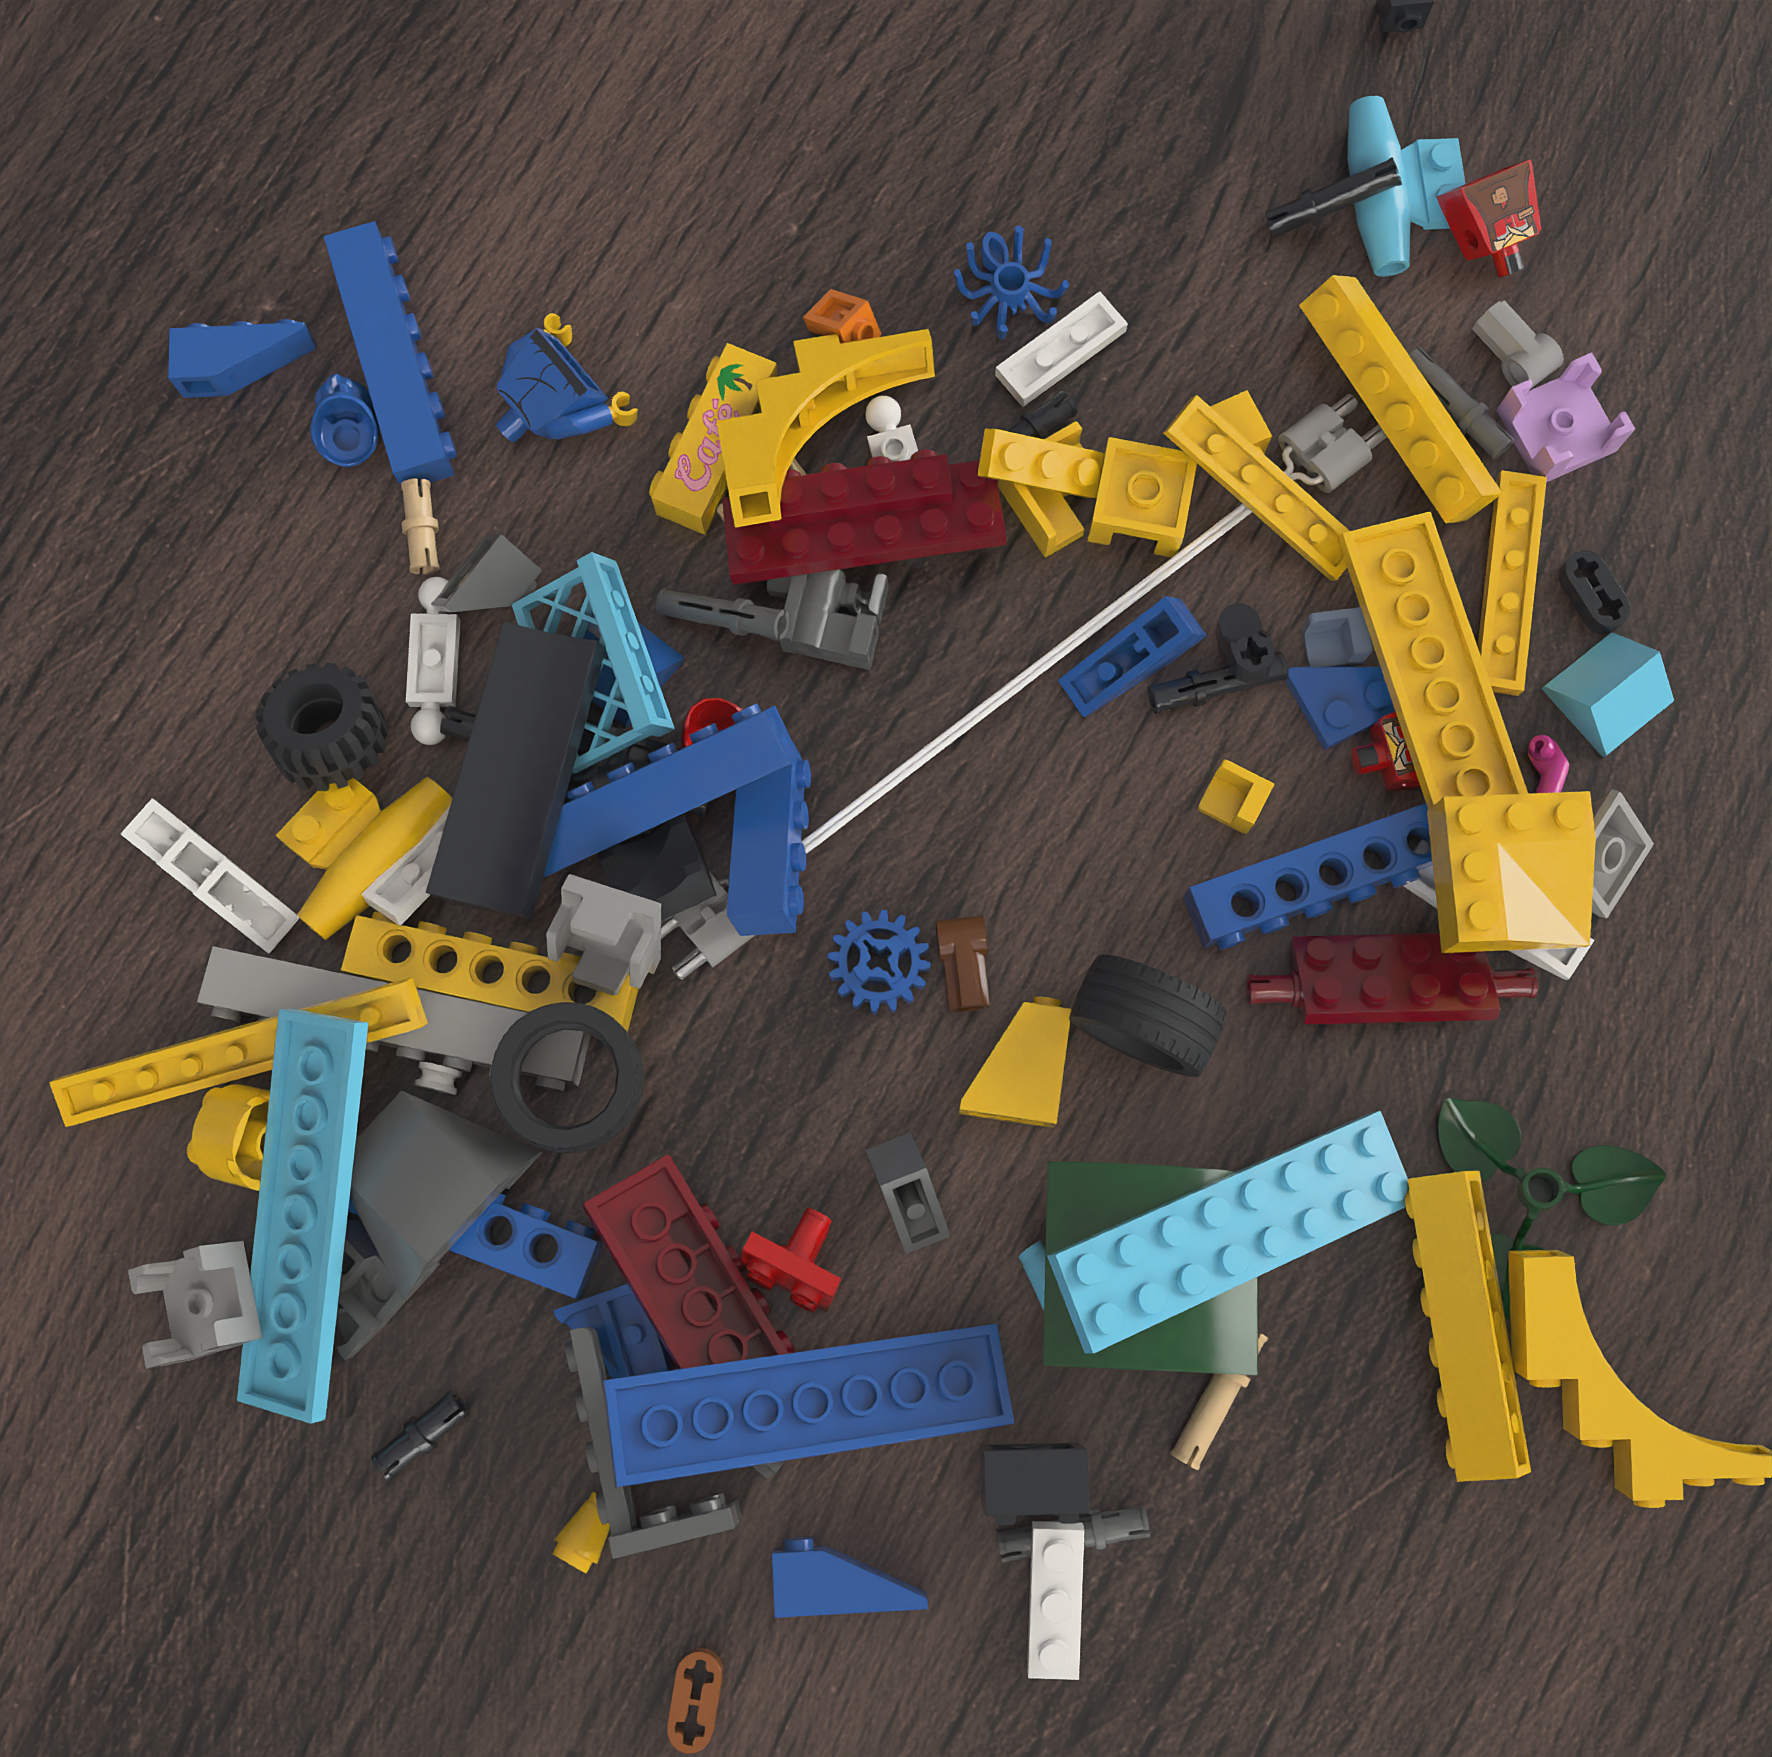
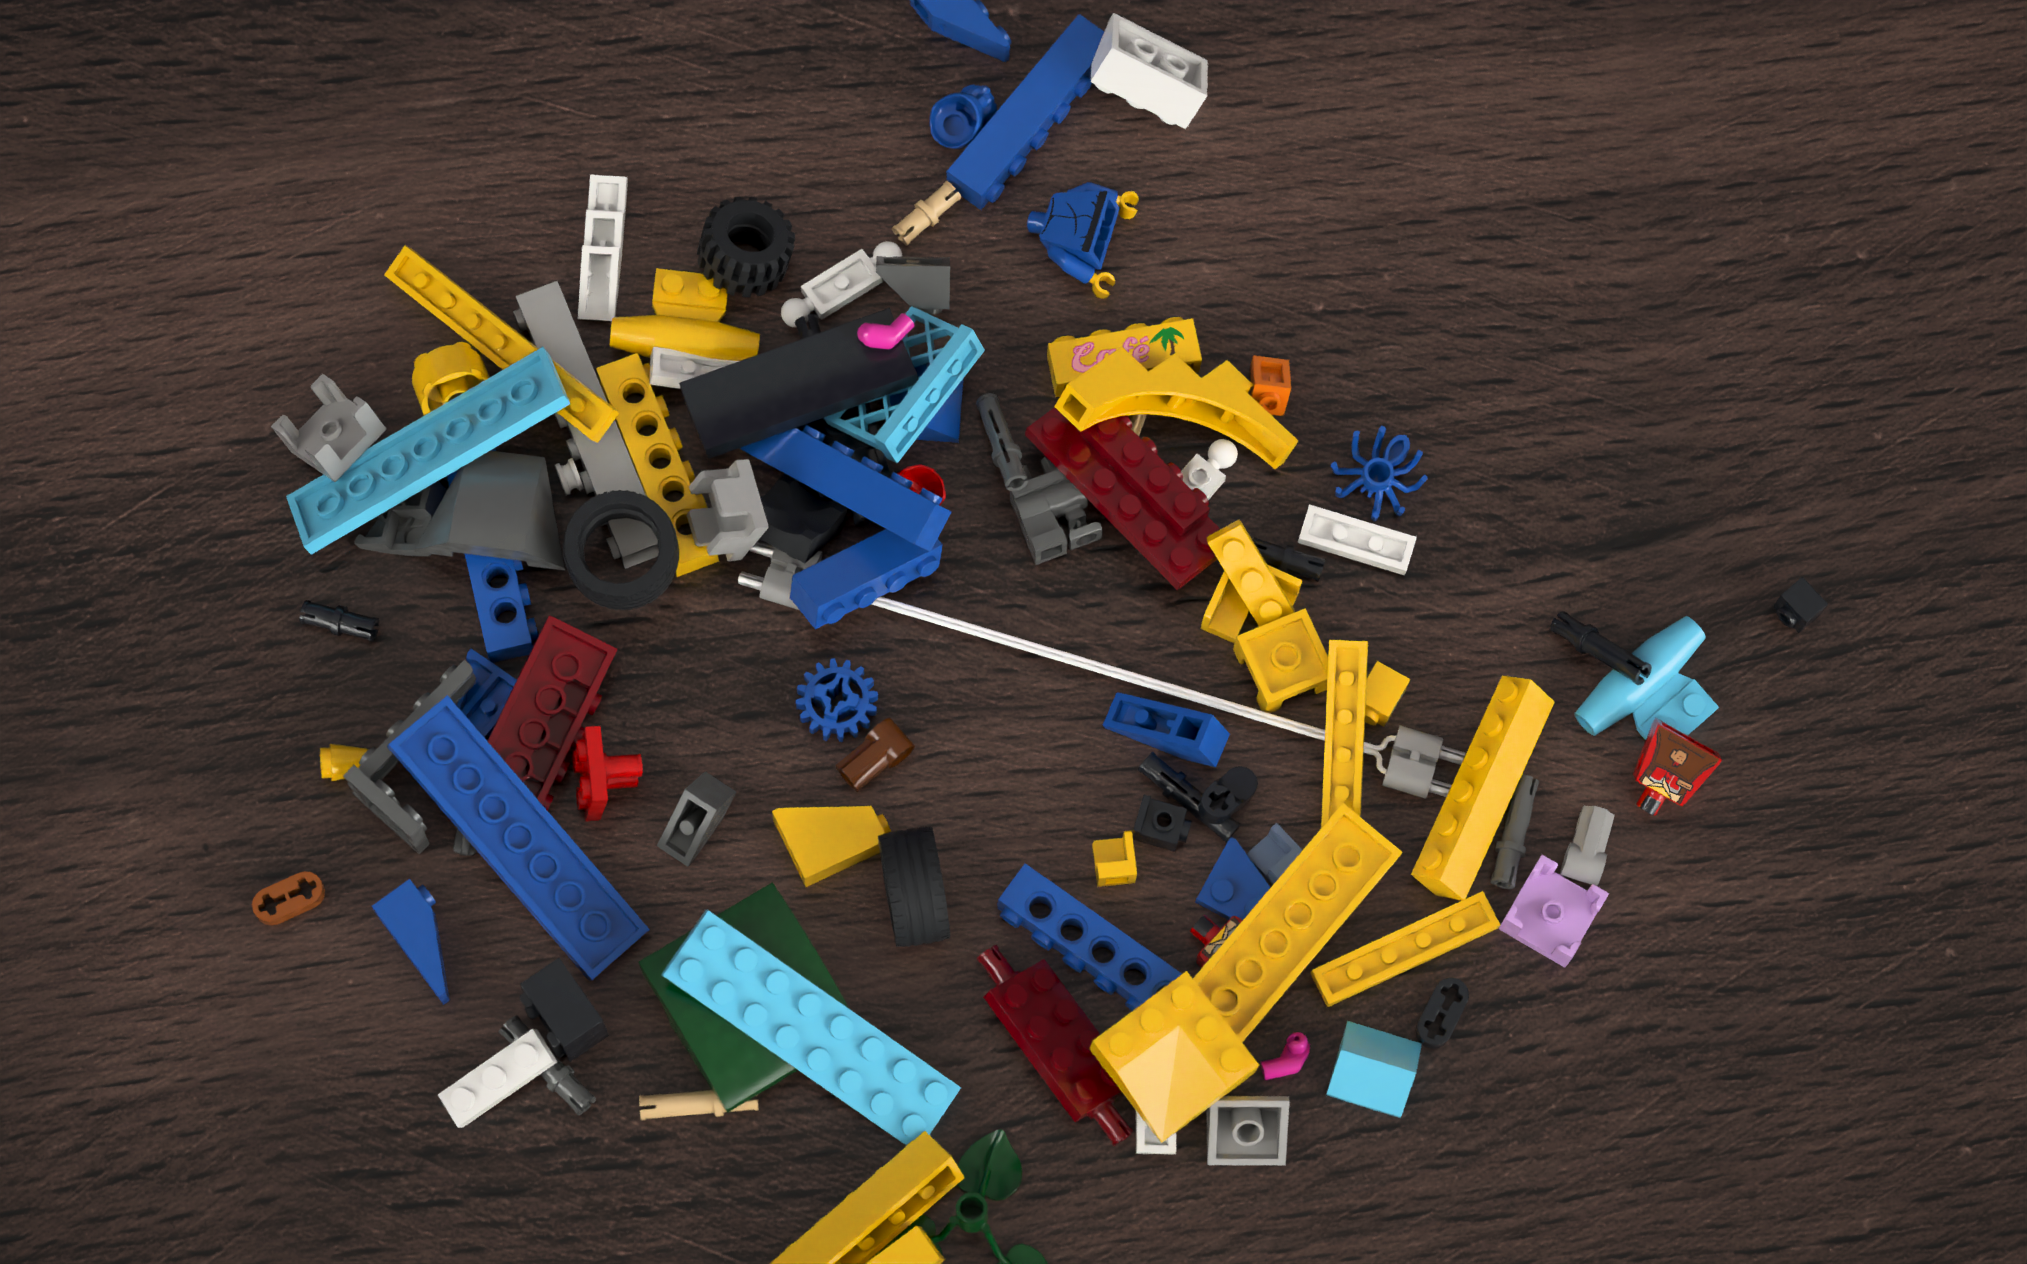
camera: 50 degrees right, 5 degrees down
(438, 211) = (1150, 72): none -> white slope
(532, 645) = (885, 336): none -> dark pink arm
(1220, 740) = (1150, 832): none -> black brick

